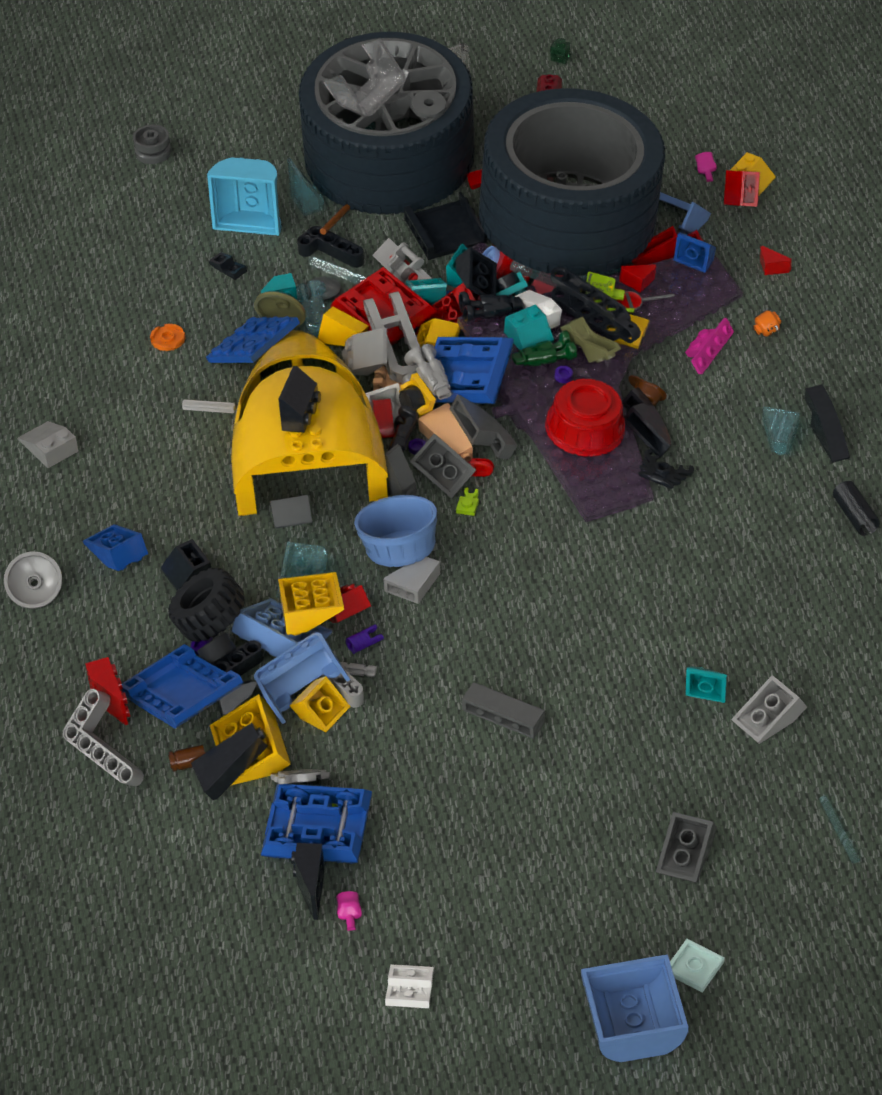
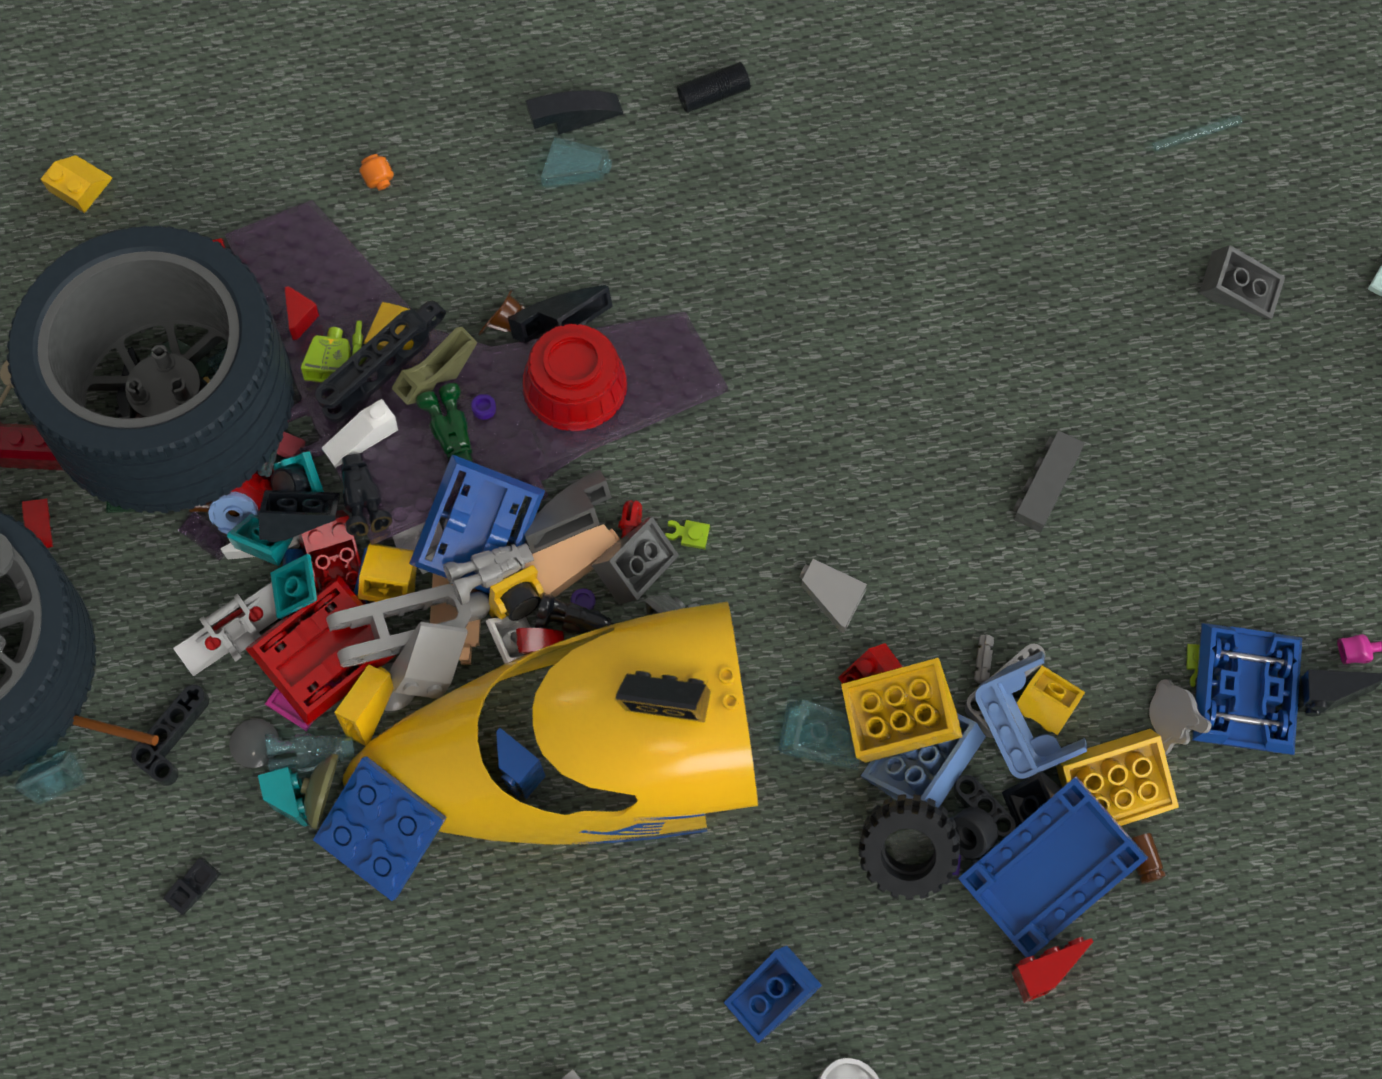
camera: 90 degrees left, 25 degrees up
(94, 710) = (1145, 974): light grey beam -> none
(163, 340) = (351, 962): orange tile -> none
(184, 563) = (818, 888): black slope -> none
(209, 406) = (493, 888): light grey axle -> none
(228, 760) = (1163, 802): black slope -> none
(244, 196) = (74, 851): medium azure container -> none
(336, 270) = (220, 723): clear light blue axle -> none
(362, 639) = (934, 648): dark purple hinge -> none
(397, 529) = (772, 603): medium blue piece -> none
(445, 227) = (139, 576): black panel -> none
(528, 327) = (407, 446): teal slope -> none
(634, 300) = (337, 319): piece -> none
(662, 472) = (649, 299): black animal -> none
(694, 252) = (257, 239): blue slope -> none
(706, 165) = (48, 236): dark pink piece -> none
(706, 684) = (999, 256): teal slope -> none
(708, 345) = (409, 246): dark pink bracket -> none
(741, 188) = (114, 186): red slope -> none
(769, 710) = (1037, 193): light grey slope -> none
(774, 262) = (256, 162): red slope -> none

